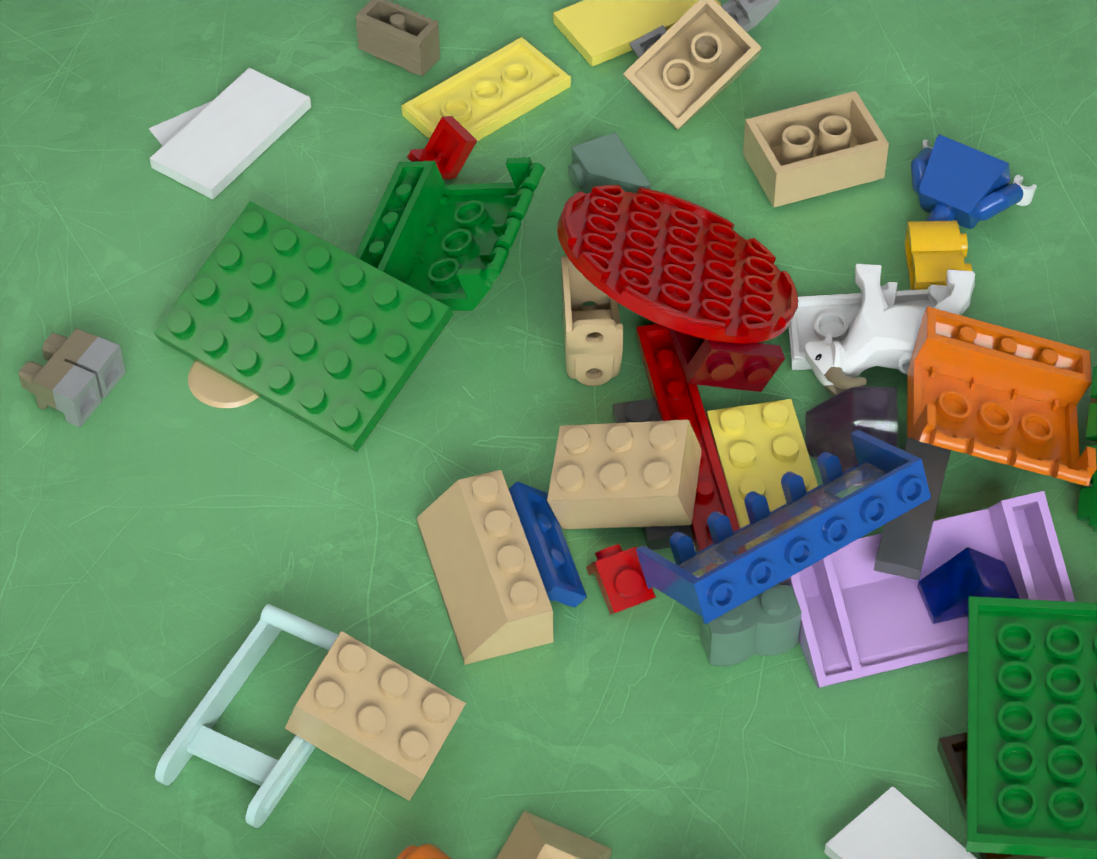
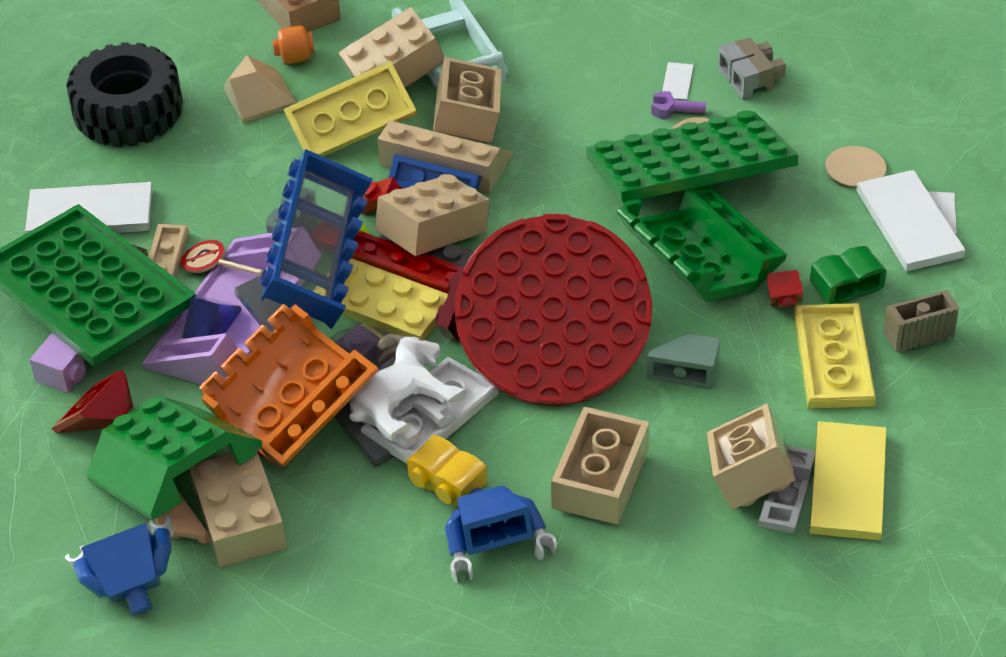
camera: 130 degrees right, 5 degrees down
(137, 450) = (678, 79): none -> white sticker
(173, 216) = (854, 165): none -> tan piece
(196, 418) = (665, 105): none -> medium lavender bar
(371, 125) = (848, 275): none -> green brick
(395, 571) = (467, 100): none -> tan brick
(519, 690) = (350, 110): none -> light yellow plate
(877, 687) = (208, 255): none -> tan piece
(913, 733) = (169, 247): none -> tan tile

